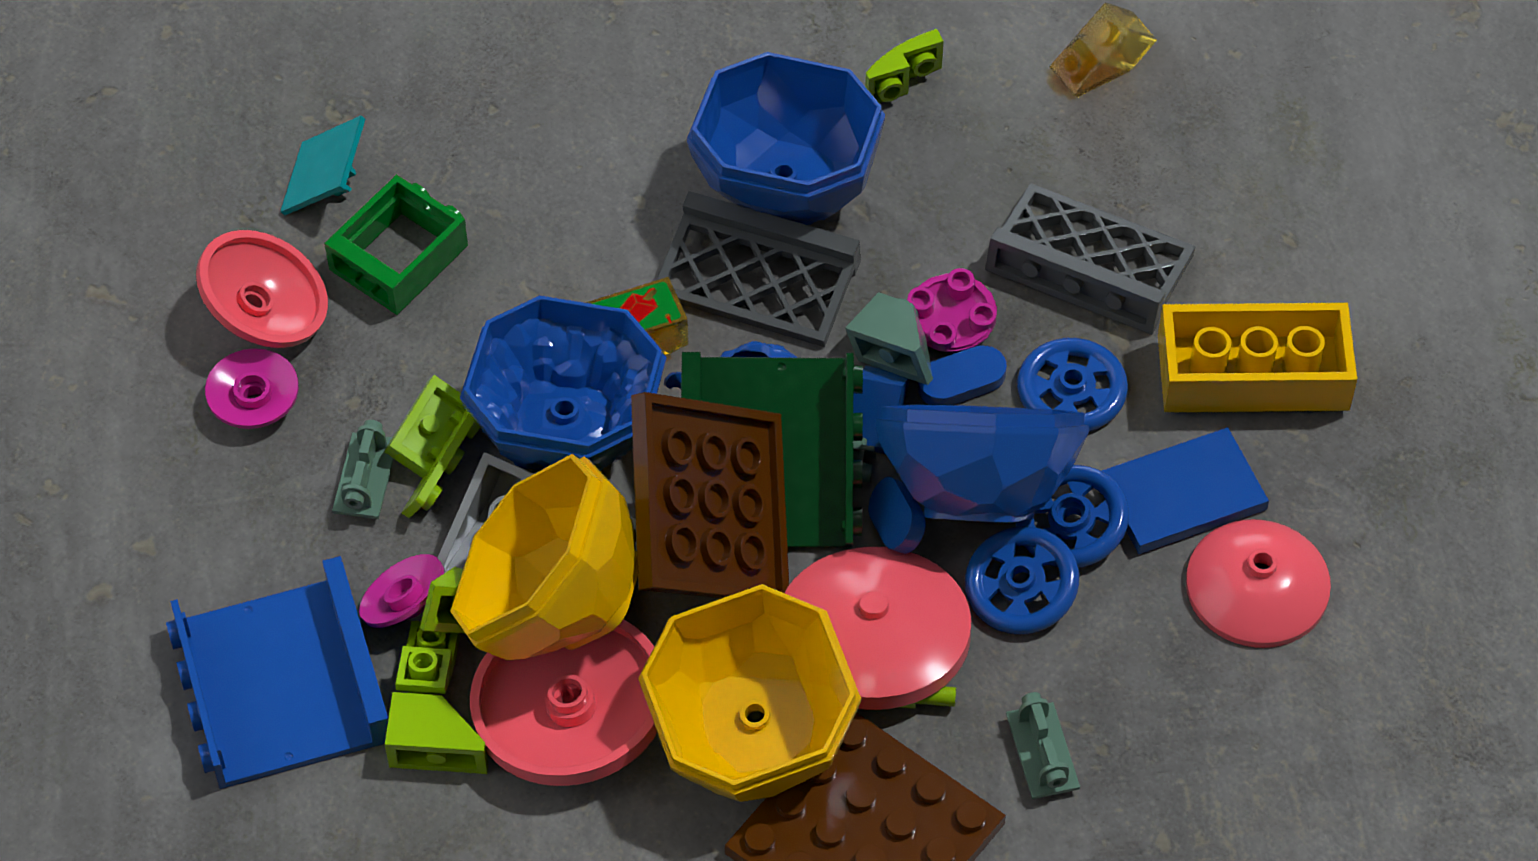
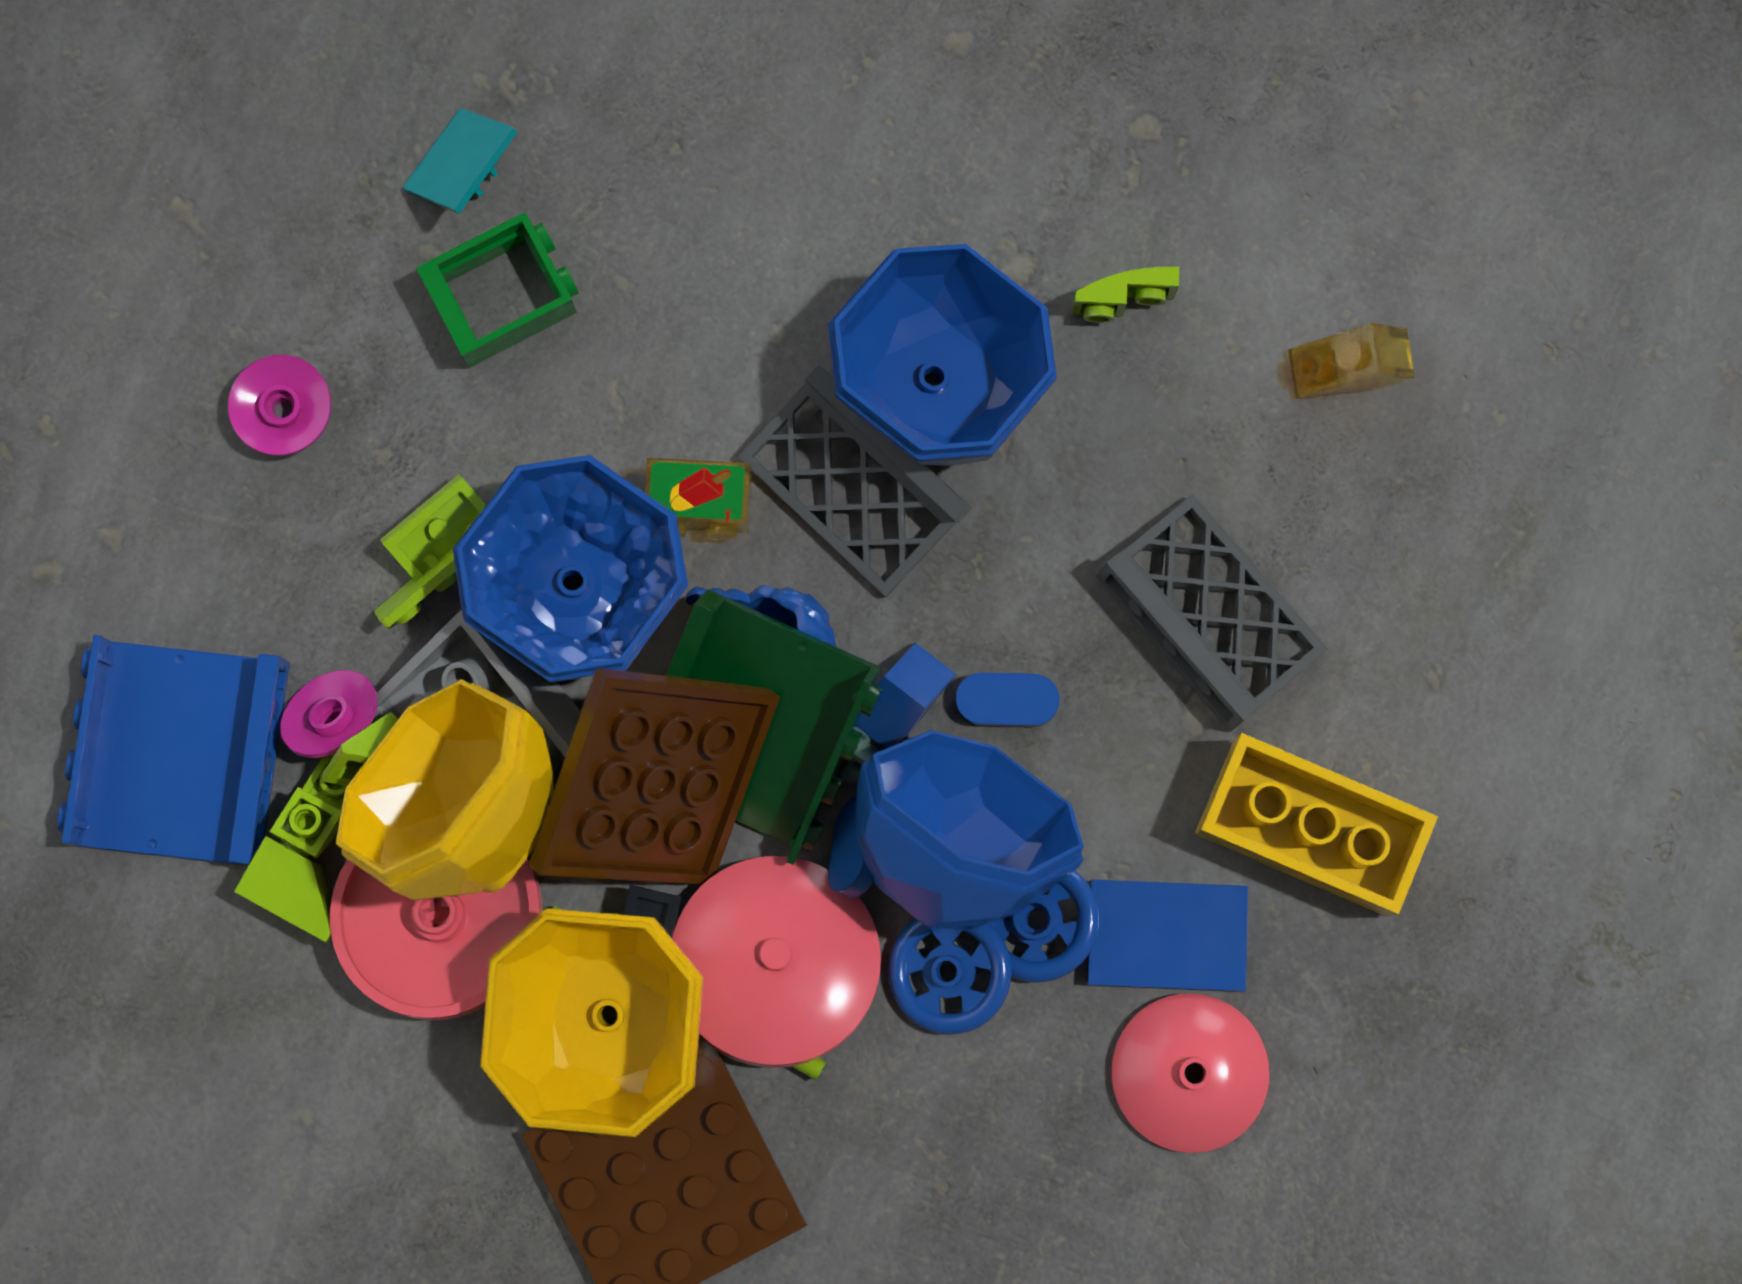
camera: 25 degrees right, 25 degrees up
(261, 289) = (362, 290): coral dish -> none
(364, 473) = (353, 554): sand green hinge -> none
(891, 338) = (953, 634): sand green slope -> none
(954, 310) = (1032, 619): dark pink dish -> none
(1042, 747) = (879, 1167): sand green hinge -> none
(1101, 362) = (1090, 794): blue plate -> none

